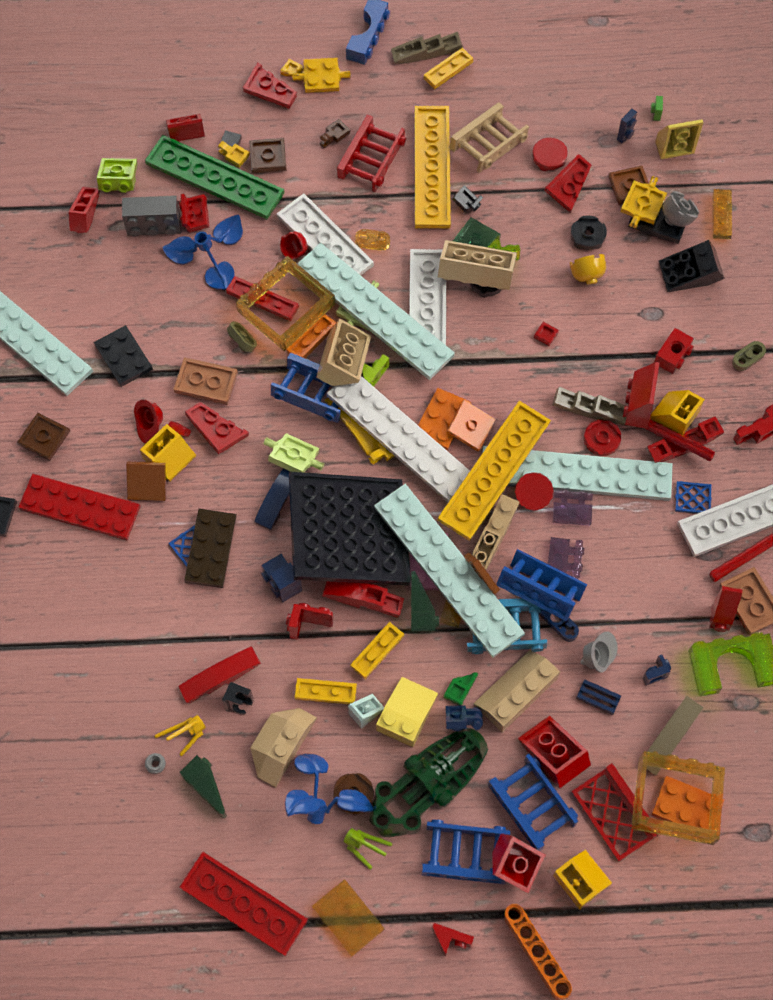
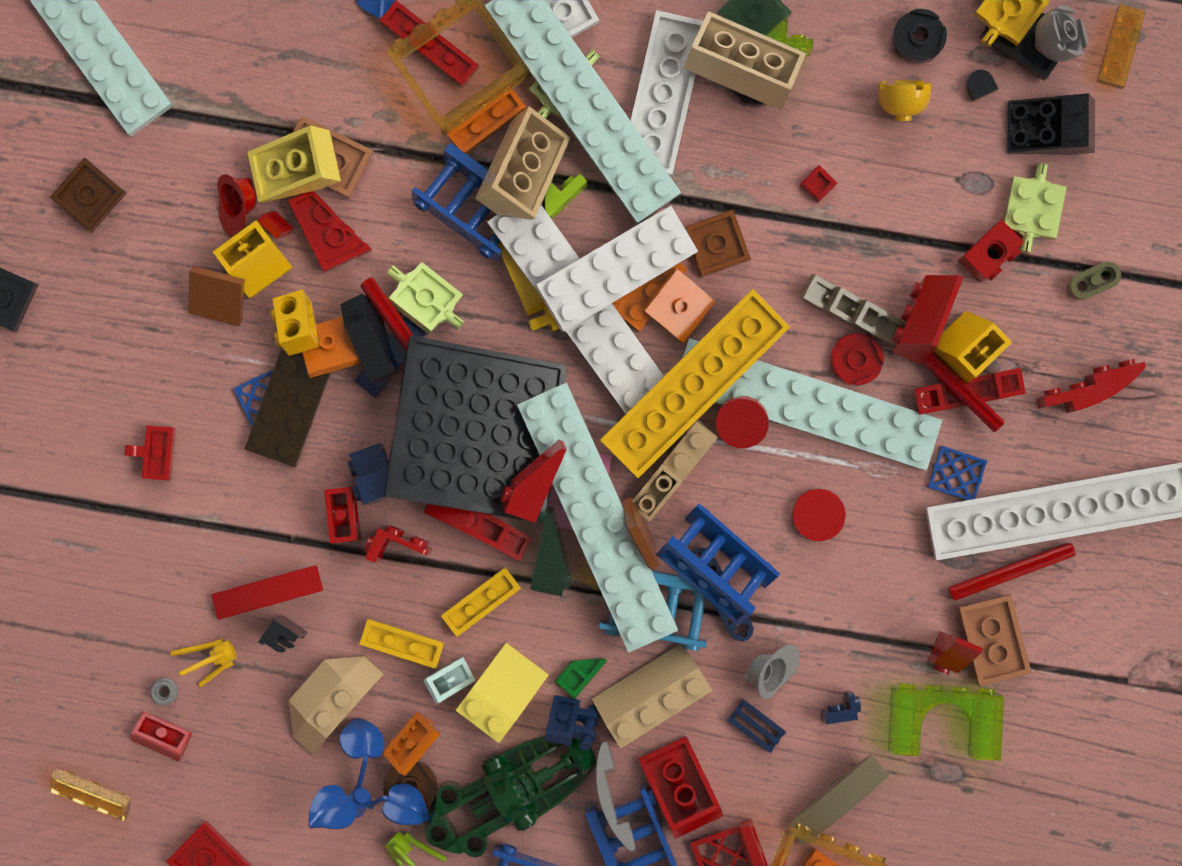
camera: 10 degrees right, 20 degrees up
(79, 507) = (121, 309): red plate -> none
(112, 849) = (90, 794): none -> clear yellow plate
(120, 596) = (156, 452): none -> red plate
(123, 356) = (218, 92): black plate -> none
(158, 798) = (160, 736): none -> red slope
(185, 385) = (294, 164): none -> light yellow slope
(202, 780) = (221, 732): clear green slope -> none
(205, 486) = (299, 321): none -> yellow brick
(232, 499) = (334, 349): none -> orange plate
(241, 336) = (388, 99): olive plate -> none
(259, 484) = (368, 337): none -> black slope
(264, 608) = (342, 515): none -> red brick
(269, 465) = (386, 311): none -> red axle
(348, 757) = (411, 743): none -> orange bracket
(396, 555) = (530, 487): none -> red slope
(422, 407) = (616, 268): none -> white plate
(486, 384) = (718, 243): none -> dark orange tile
(517, 783) = (604, 766): none -> light grey slope
(559, 552) = (753, 521): clear purple plate -> none
(572, 513) = (786, 461): clear purple plate -> none
(604, 543) = (818, 515): none -> red tile
(637, 254) = (980, 84): none -> black tile
(695, 319) = (1034, 207): none -> yellowish green plate

